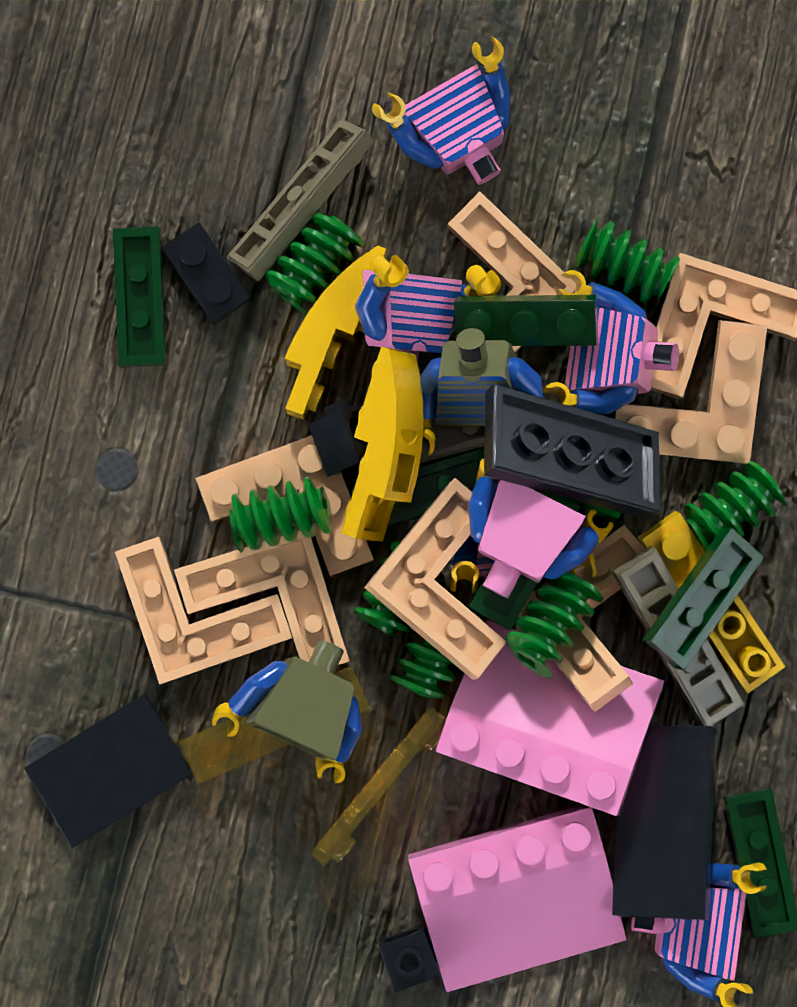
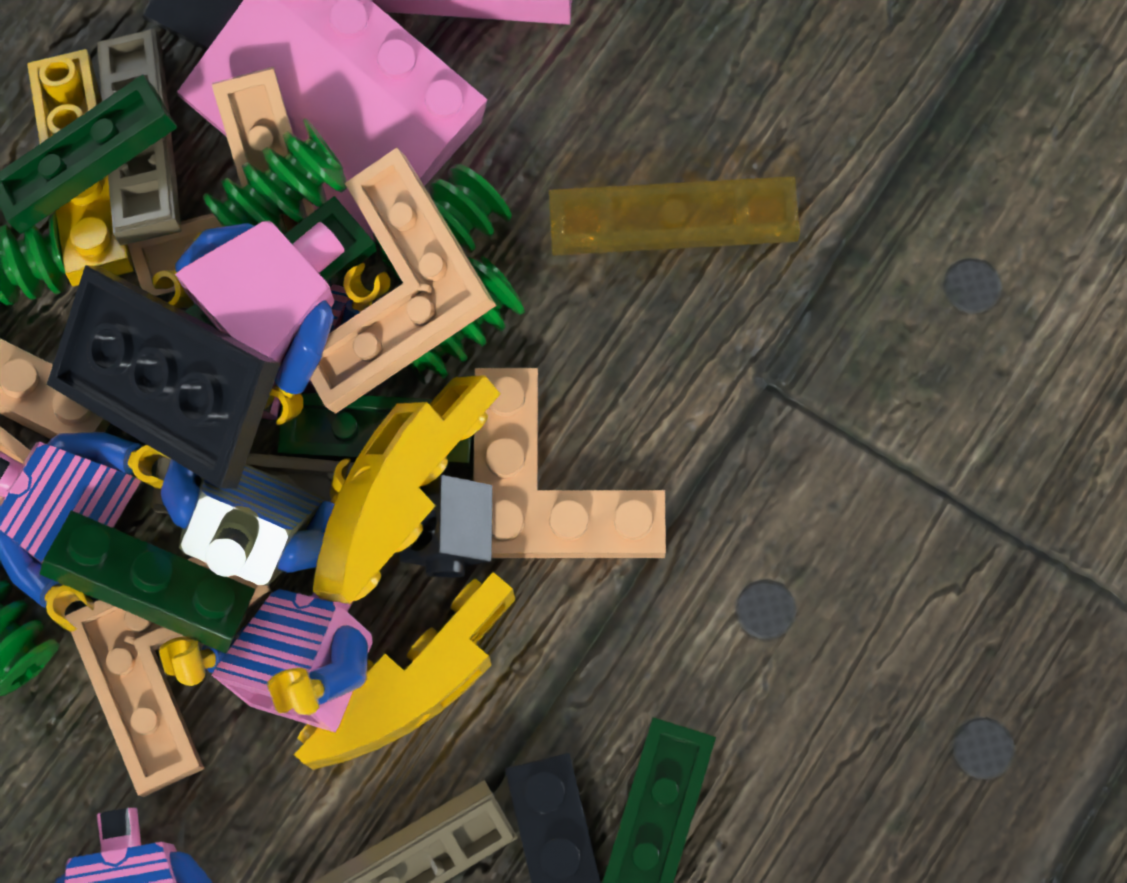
camera: 155 degrees left, 10 degrees down
(108, 770) = (901, 237): black tile -> none
(184, 647) = (756, 346): light nougat plate -> none
(280, 515) = (571, 451): green piece -> none
(289, 567) = (599, 407): light nougat plate -> none
(301, 707) = (636, 207): olive torso -> none
(313, 260) = (398, 782): green piece -> none
(337, 839) = (642, 62): clear yellow plate -> none

